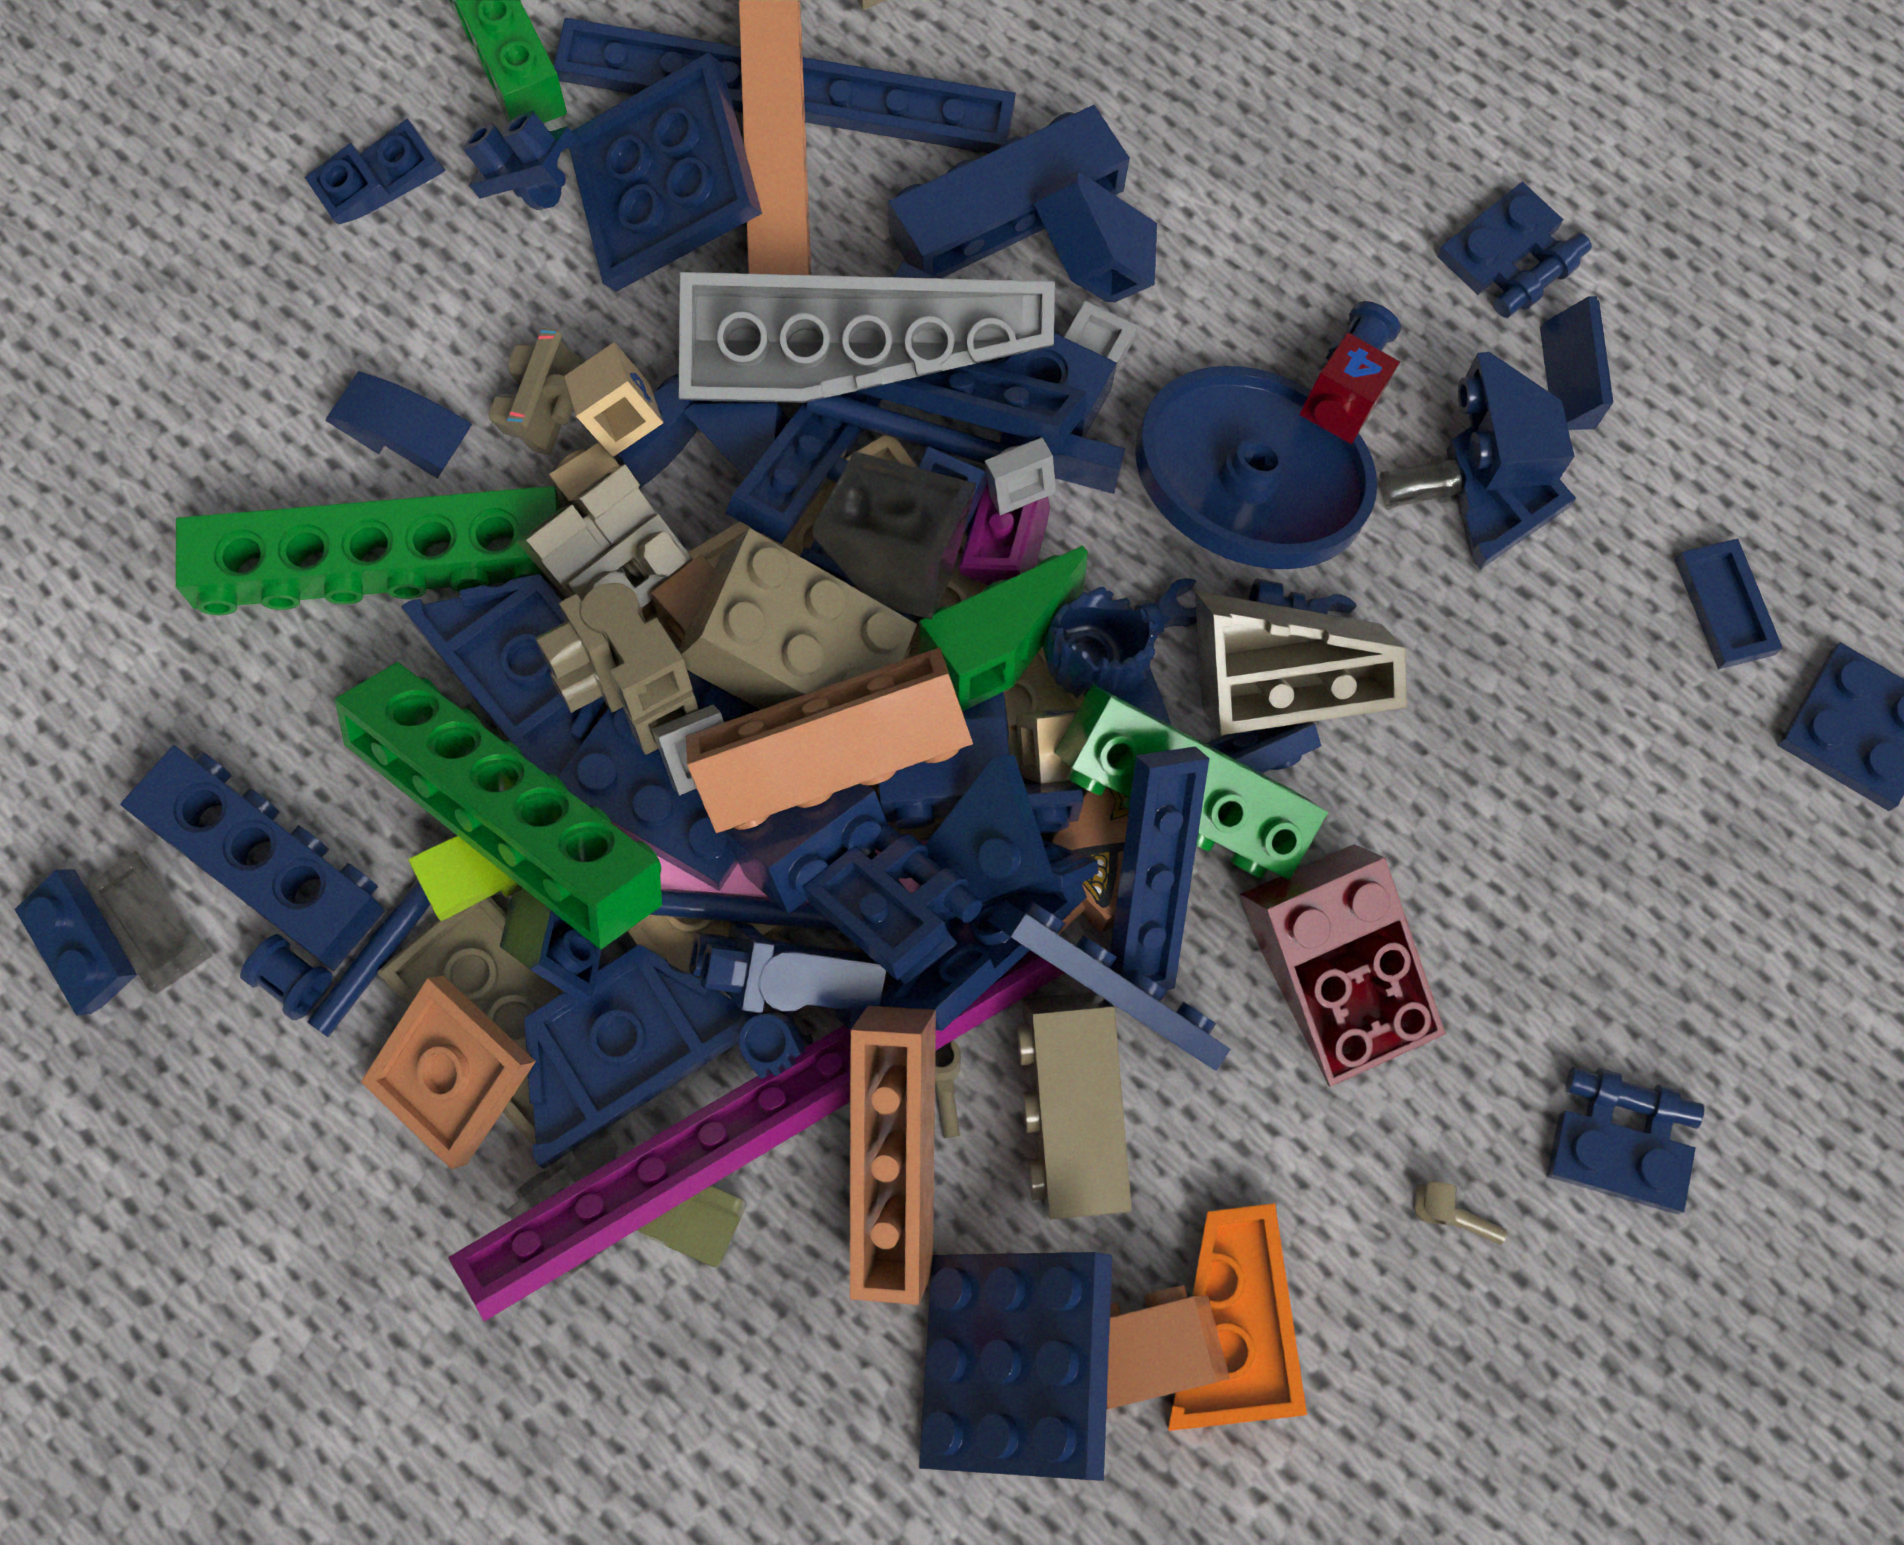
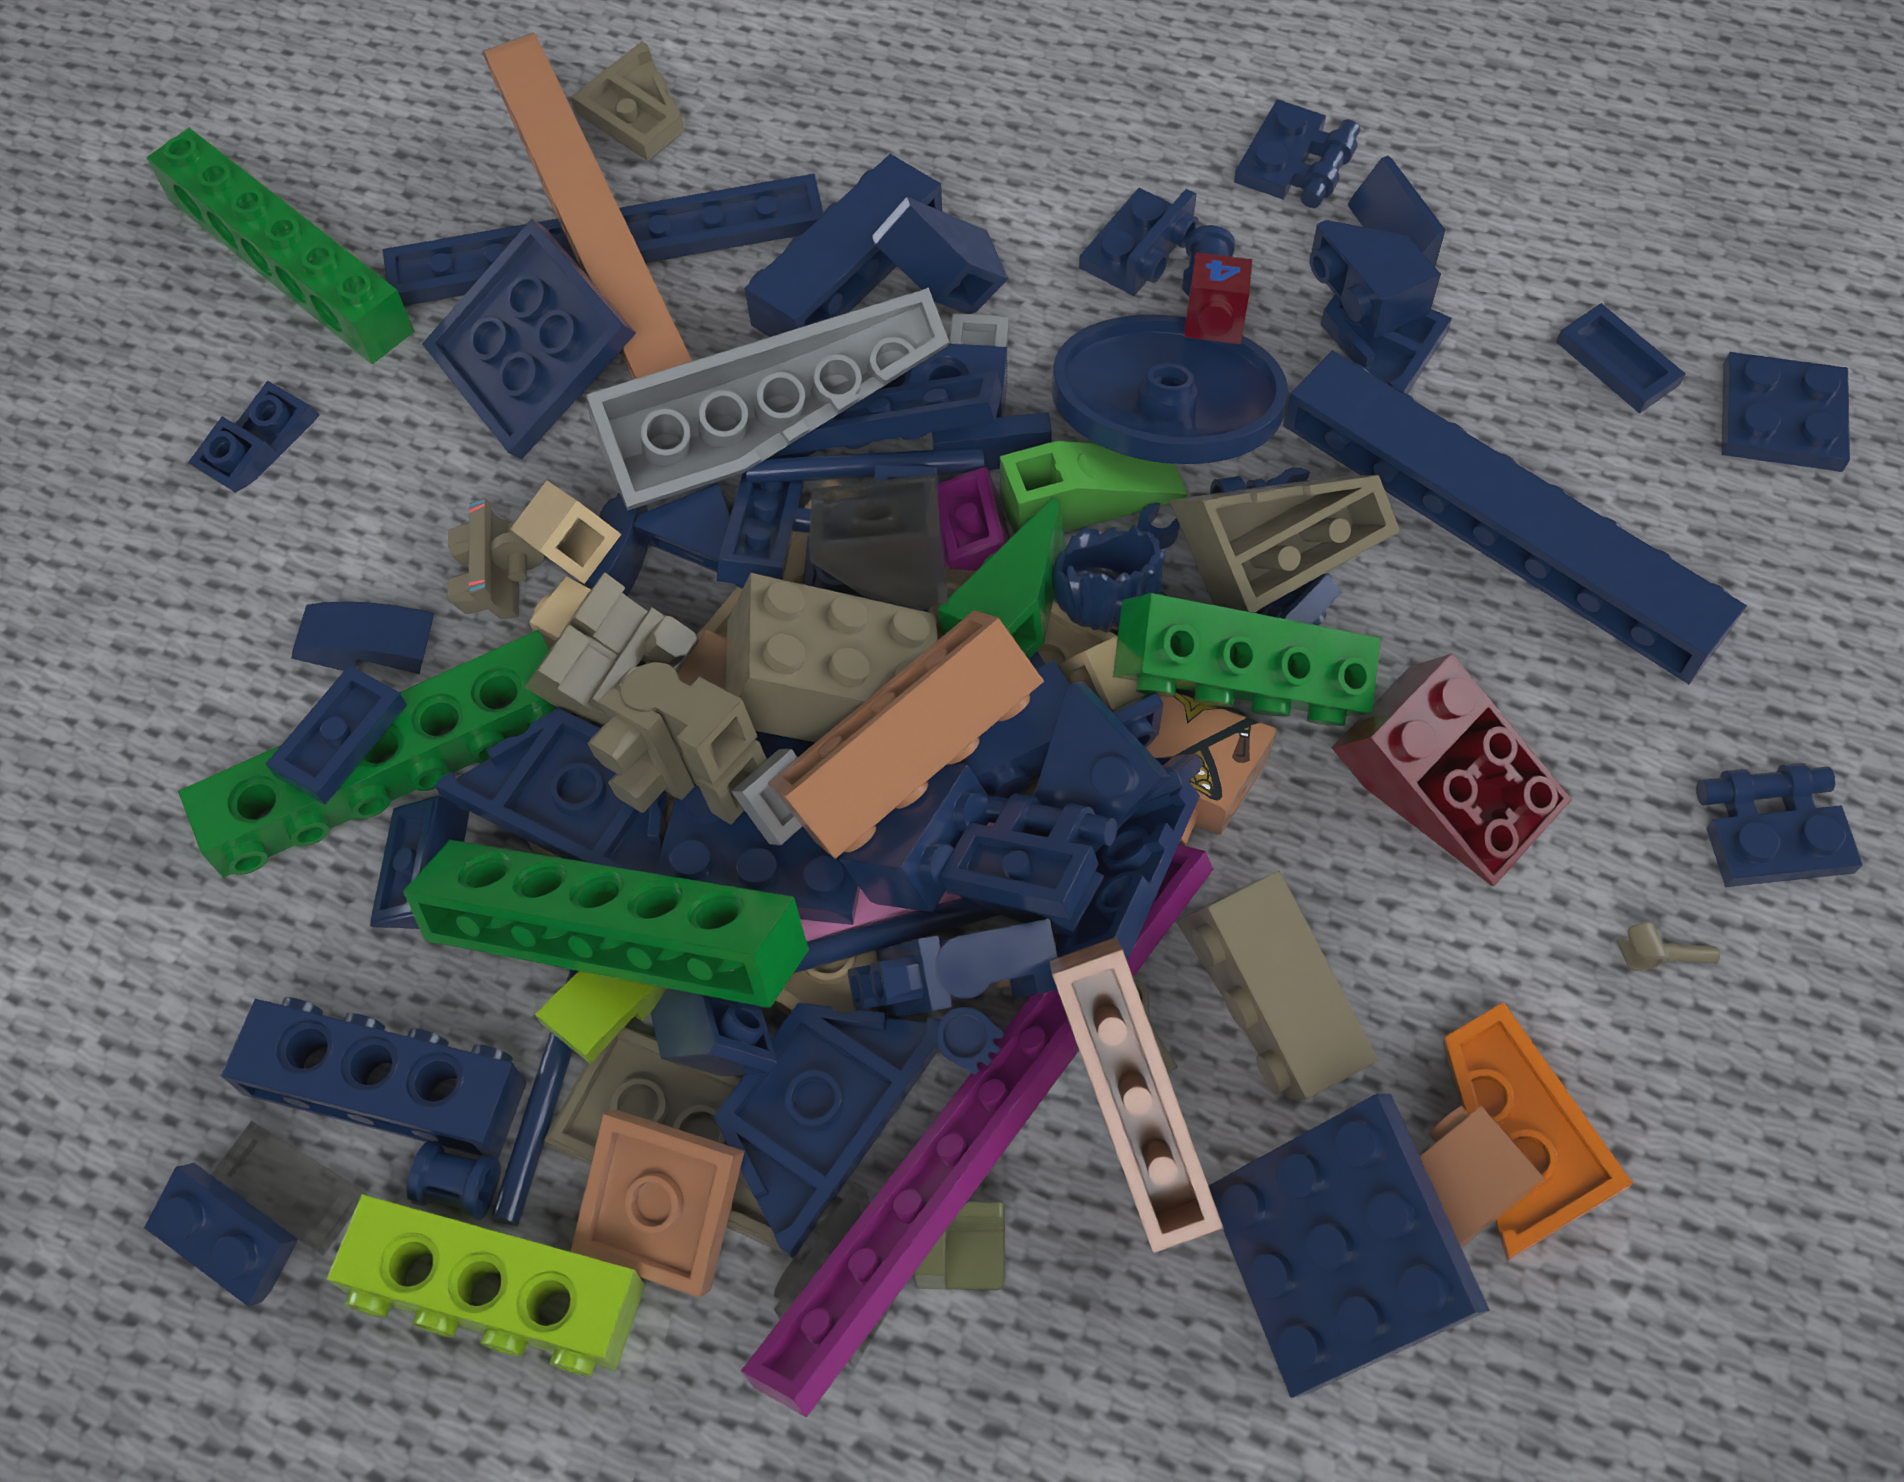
camera: 15 degrees left, 10 degrees down
(208, 1008) = (390, 1237): none -> lime brick
(331, 522) = (336, 734): none -> dark blue plate
(372, 644) = (413, 840): none -> dark blue slope
(520, 160) = (399, 379): dark blue hips -> none
(1020, 476) = (968, 463): light grey plate -> none
(1090, 966) = (1238, 849): dark blue plate -> none
(1125, 535) = (1086, 480): none -> bright green slope
(1158, 863) = (1257, 740): dark blue plate -> none
(1309, 286) = (1139, 240): none -> dark blue bracket
(1420, 483) = (1309, 354): clear smoke pin -> none
(1529, 729) = (1514, 517): none -> dark blue brick

